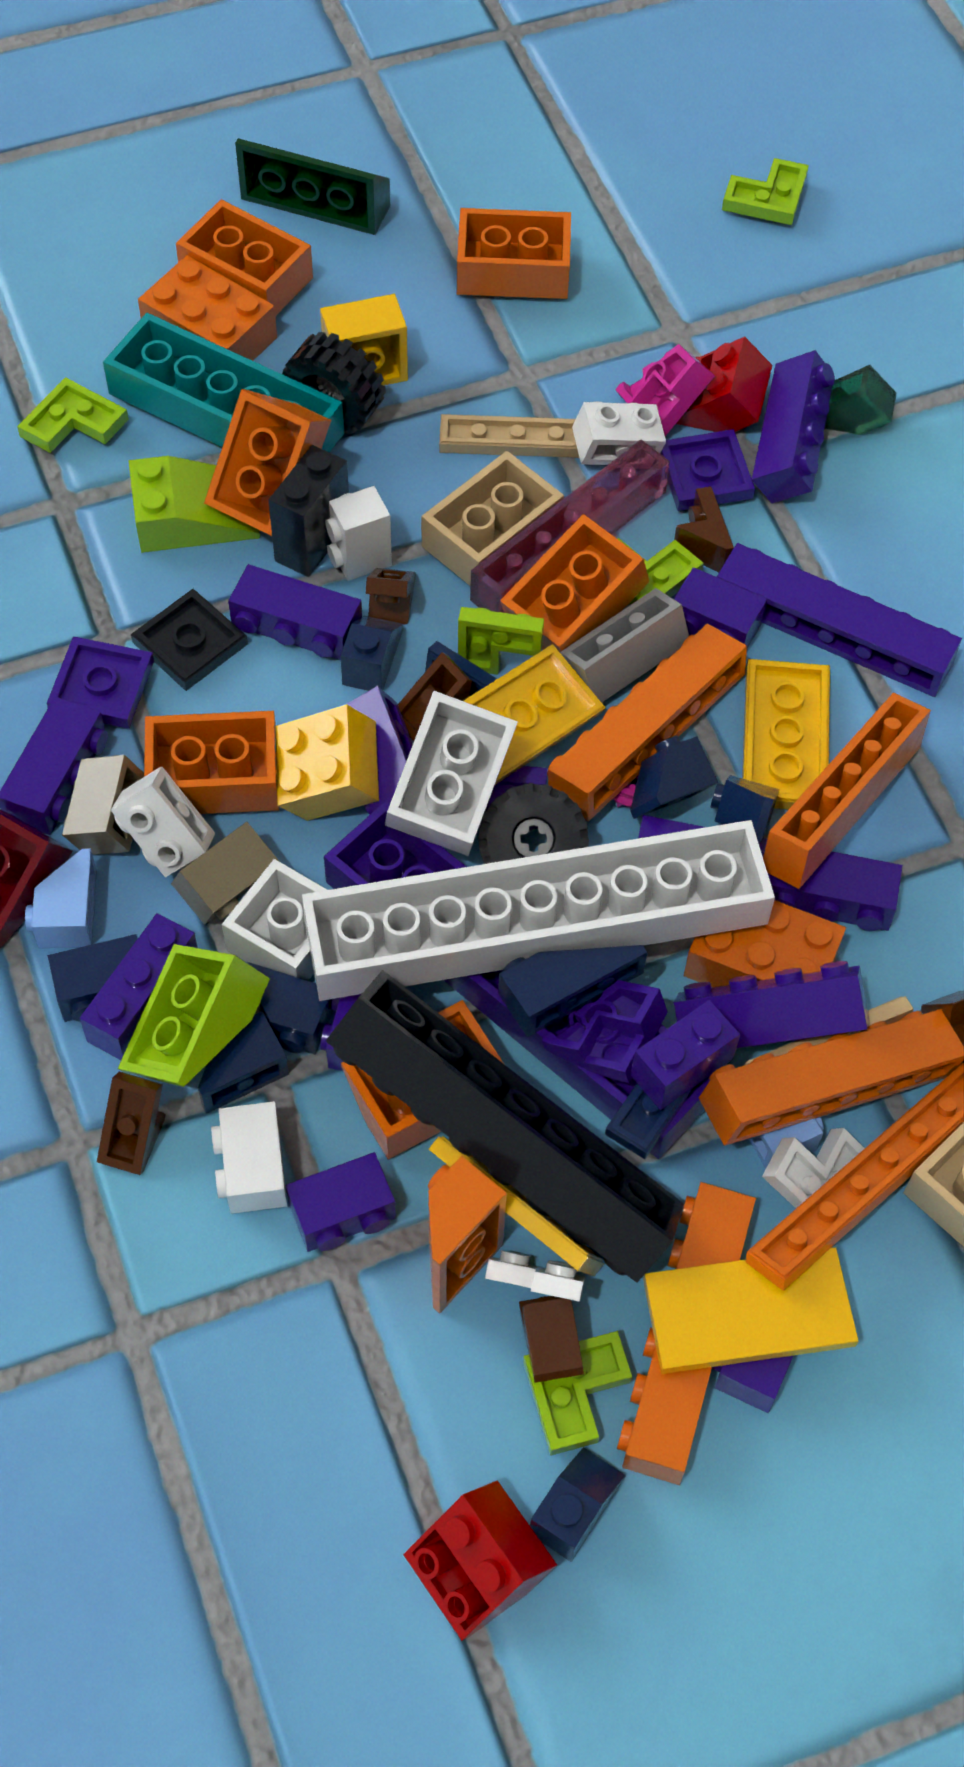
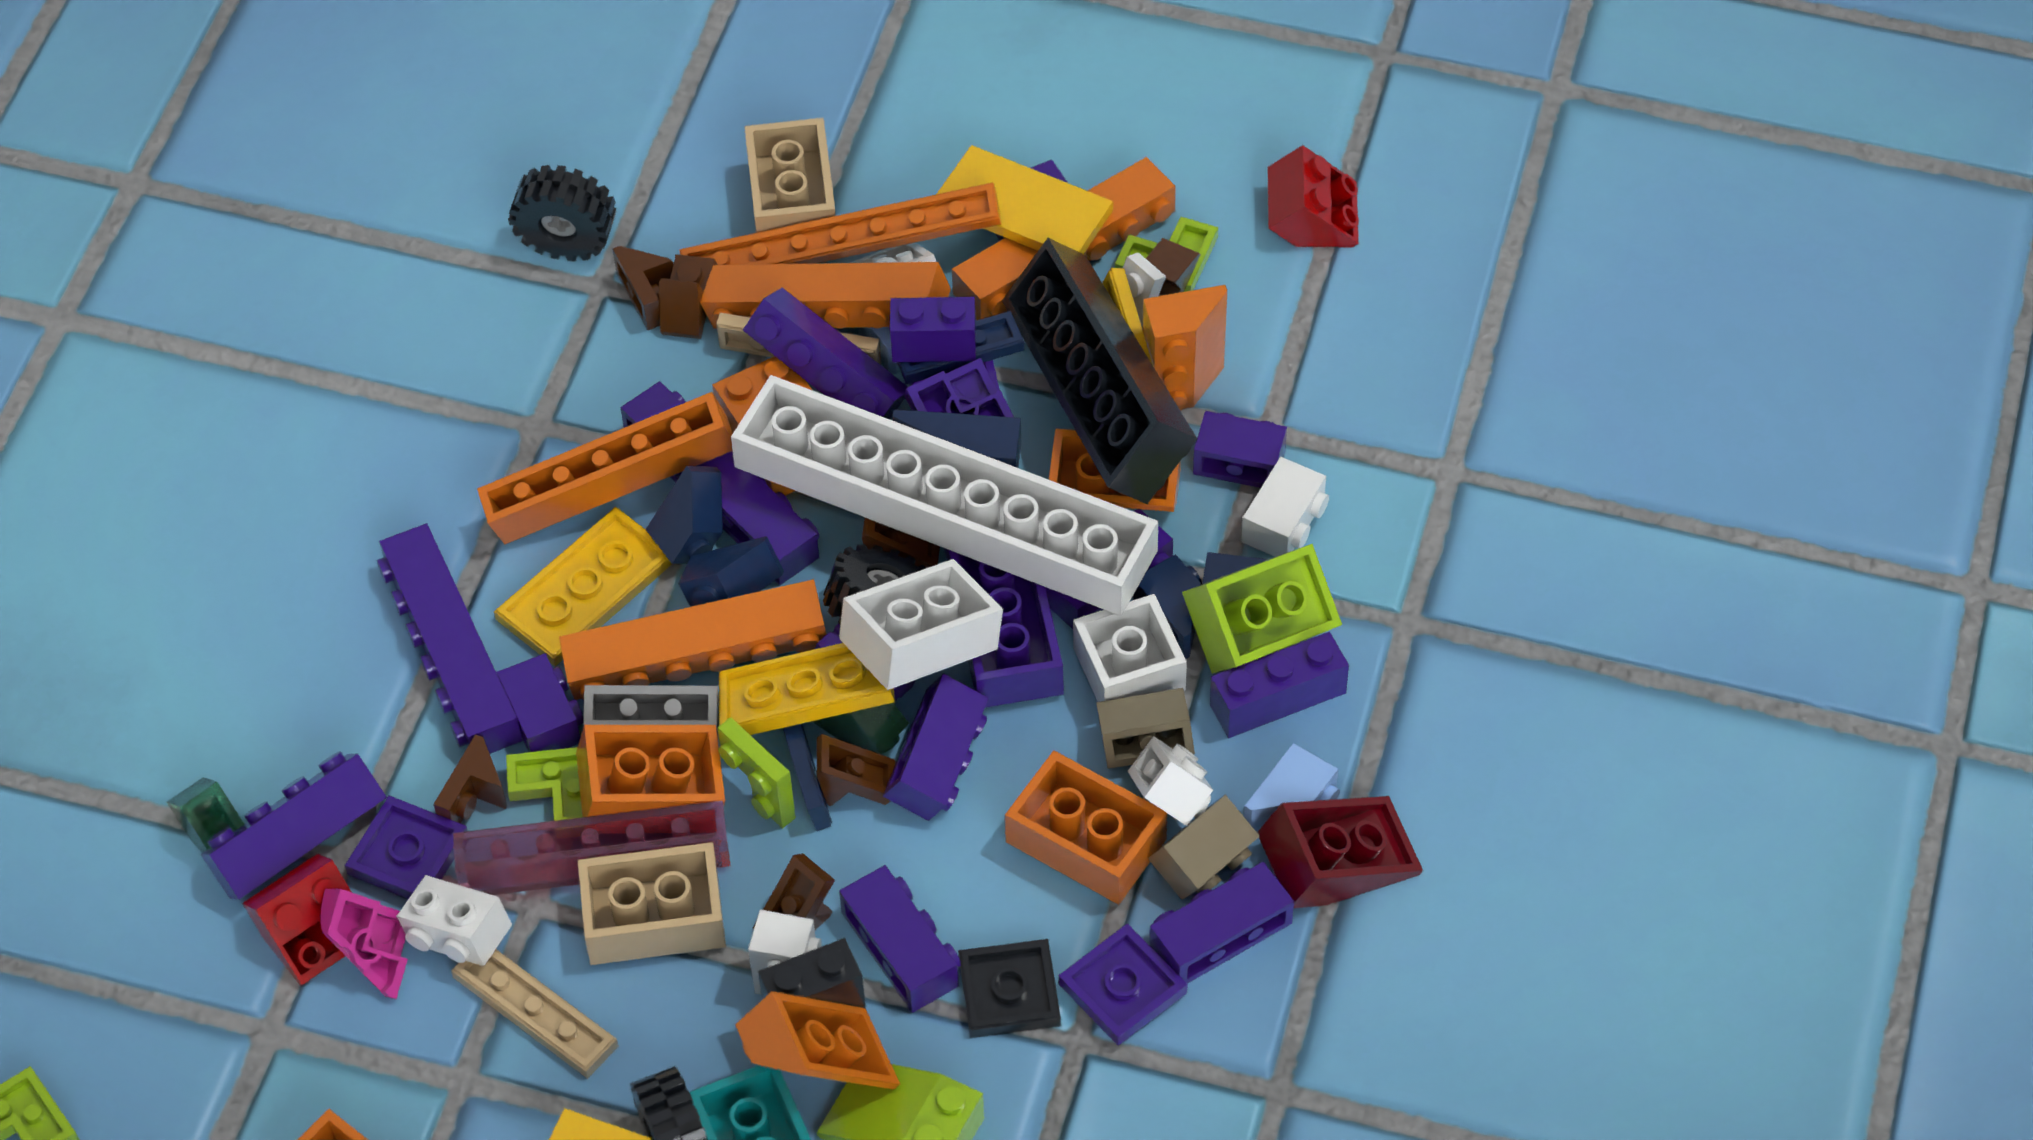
camera: 140 degrees left, 5 degrees down
(83, 972) = (1310, 717): dark blue slope -> none
(130, 1123) = (1357, 592): reddish brown slope -> none
(326, 763) = (994, 750): yellow brick -> none
(369, 652) = (861, 851): dark blue slope -> none
(575, 1503) = (1227, 193): dark blue slope -> none

